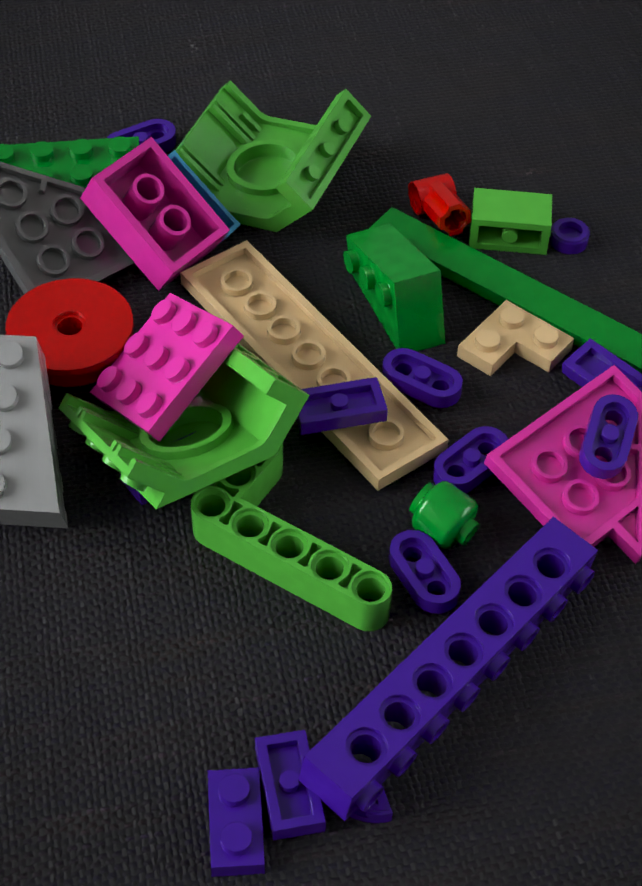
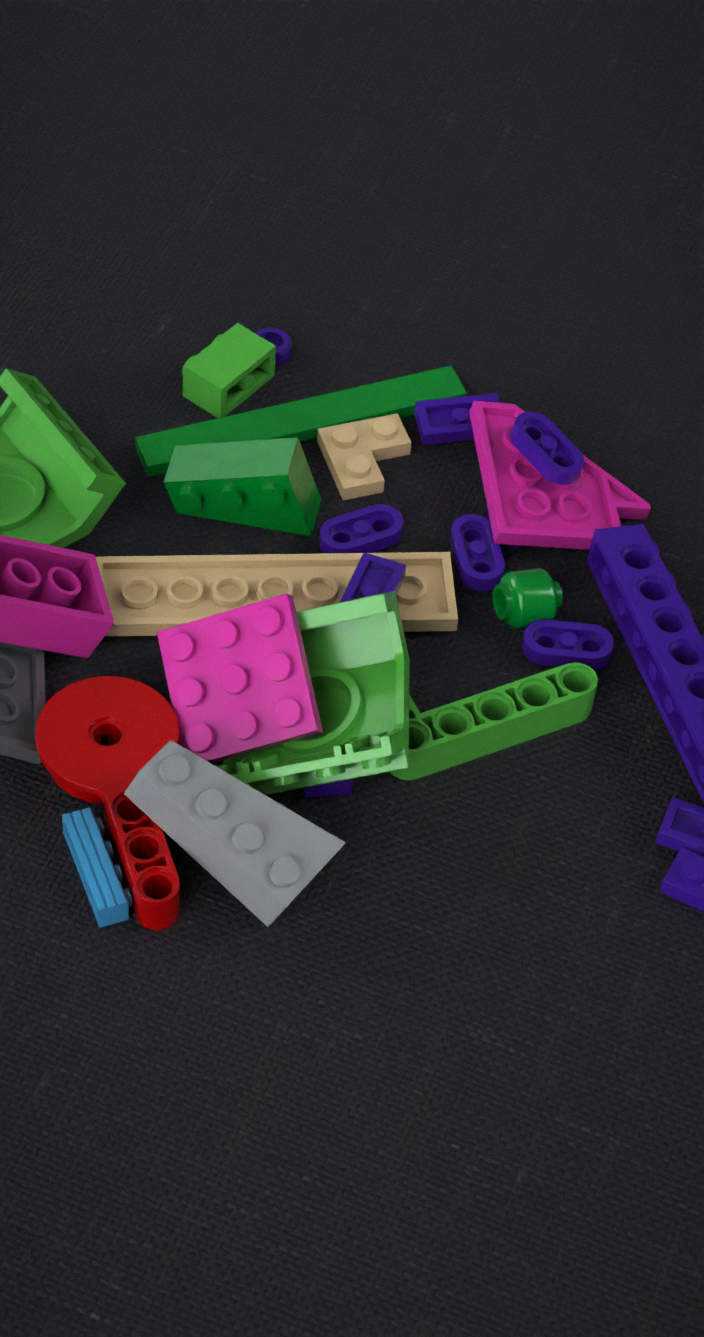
camera: 60 degrees left, 0 degrees up
(440, 202) = (156, 400): red piece -> none

